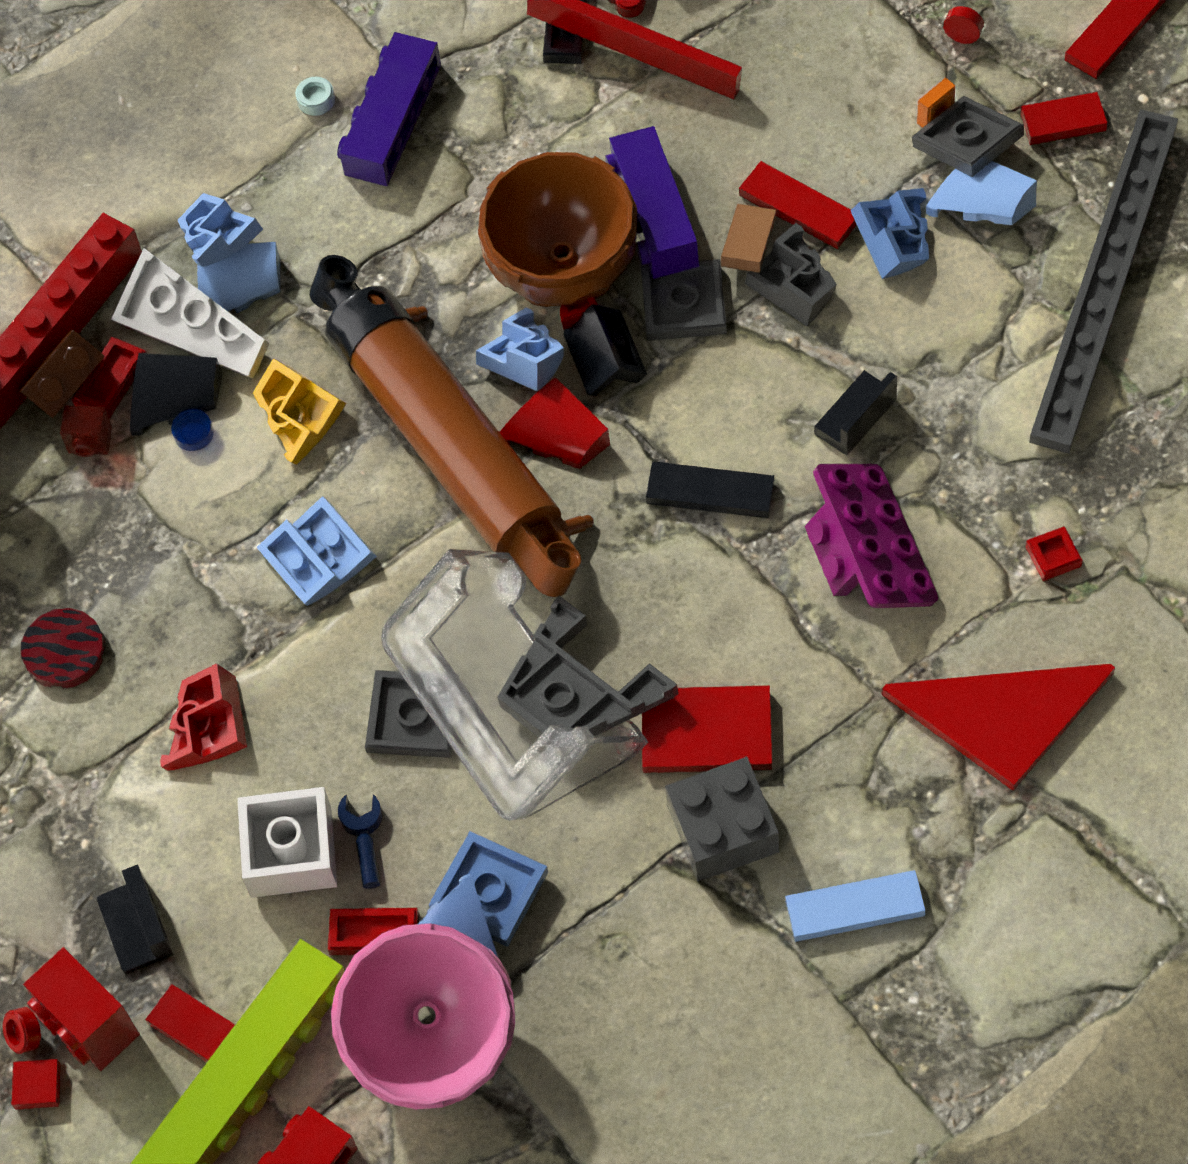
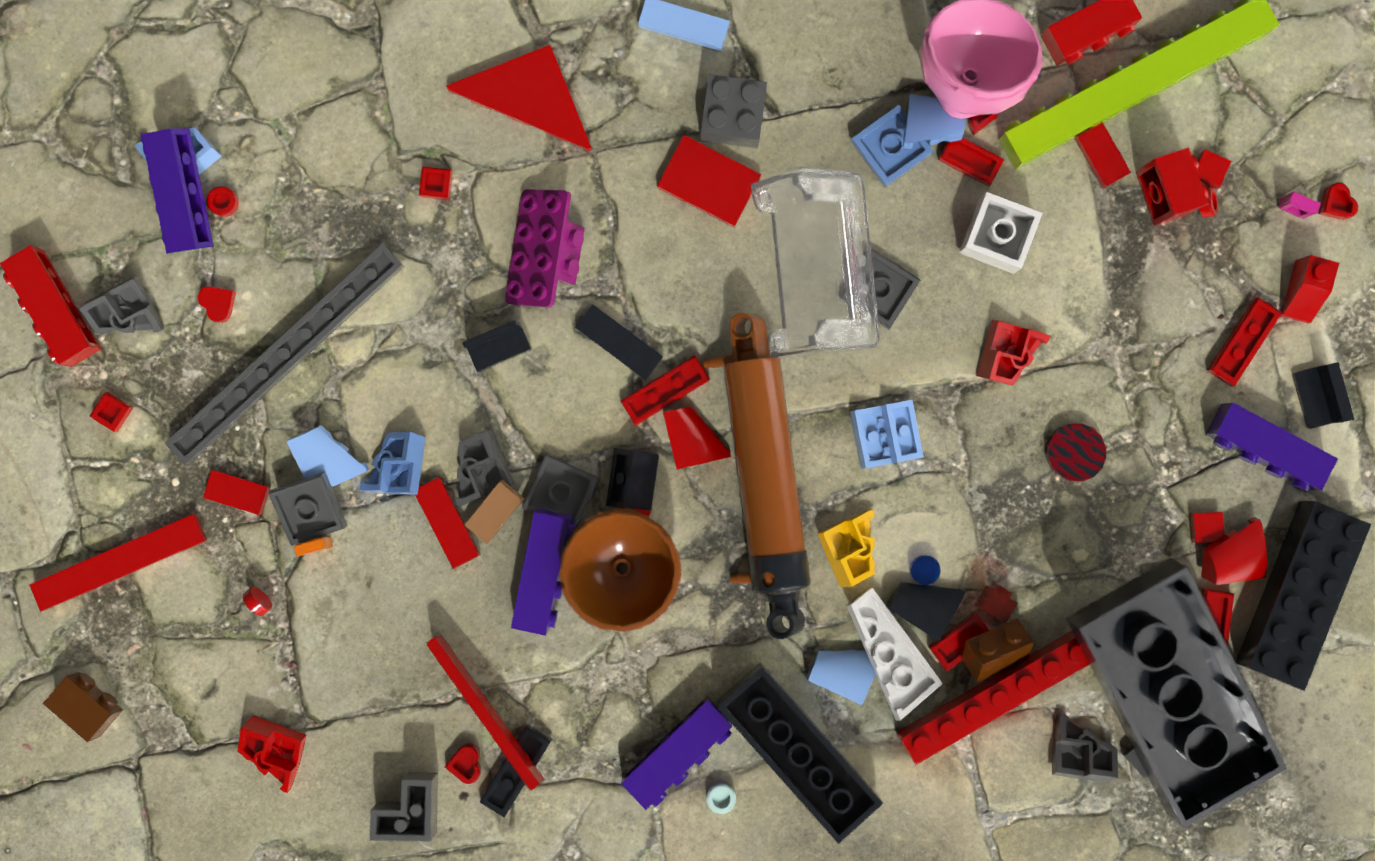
camera: 160 degrees left, 25 degrees up
(134, 923) = (1109, 239): black panel -> none
(216, 230) = (845, 709): light blue slope -> none
(250, 167) = (799, 753): none -> black brick
(362, 827) = (949, 218): dark blue piece -> none
(522, 352) = (686, 504): light blue slope -> none
(557, 689) = (789, 241): dark grey wing -> none
(621, 467) = (665, 390): none -> red tile

